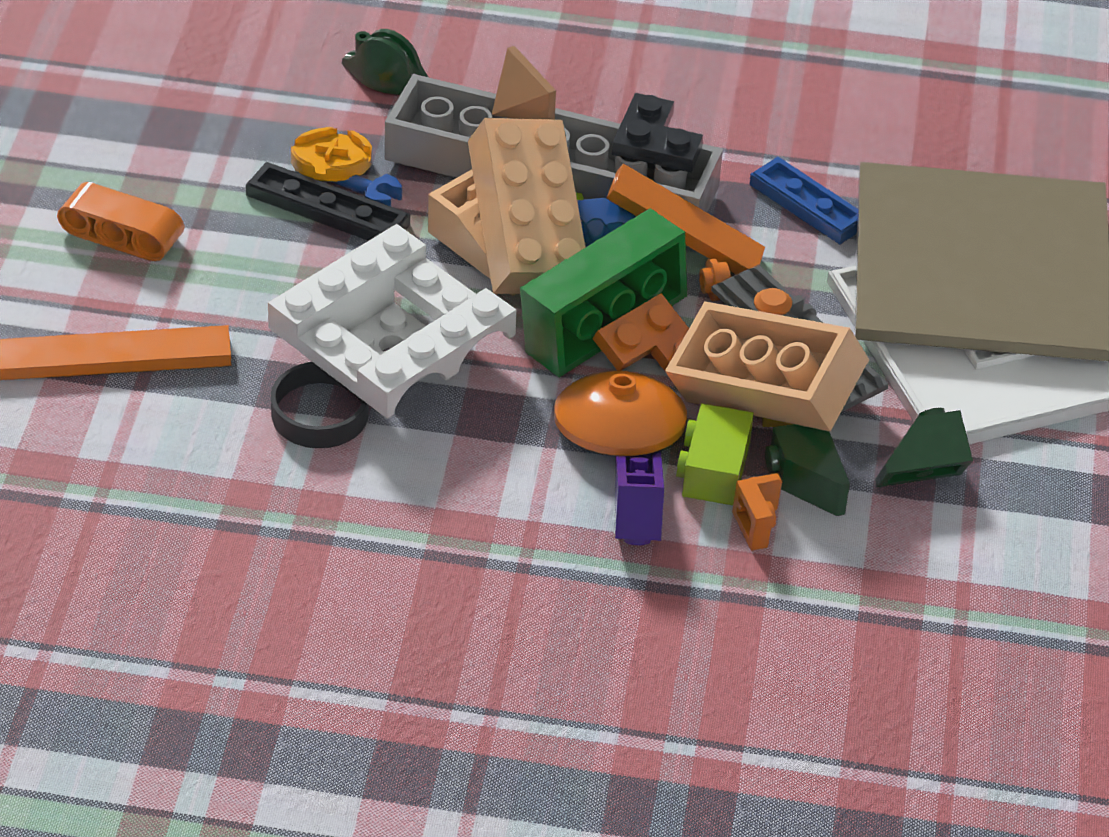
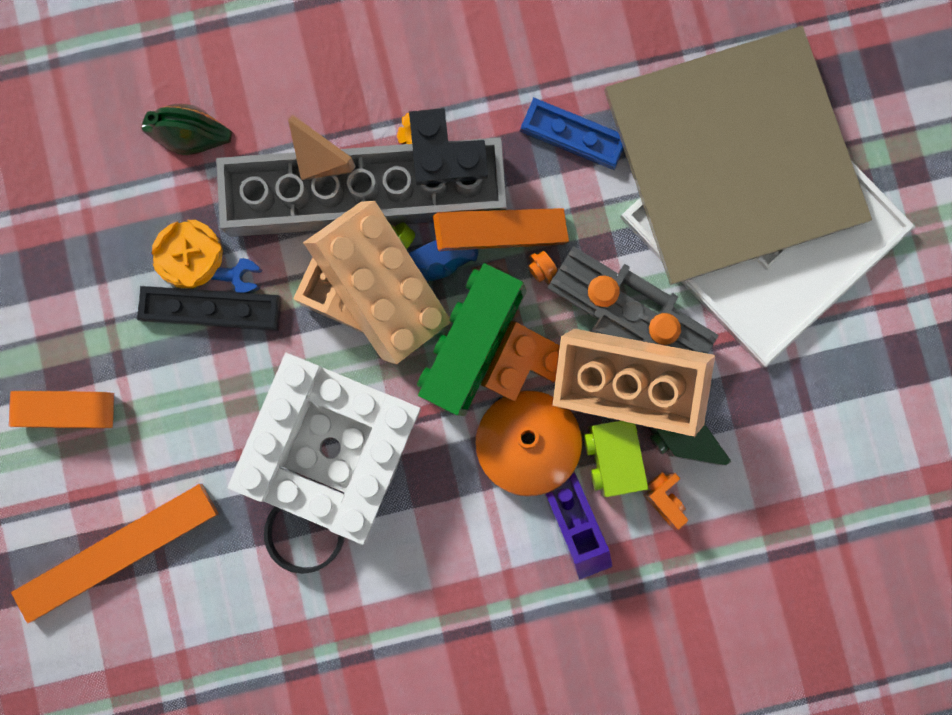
camera: 20 degrees left, 40 degrees up
(929, 450) = (767, 390): dark green slope -> none

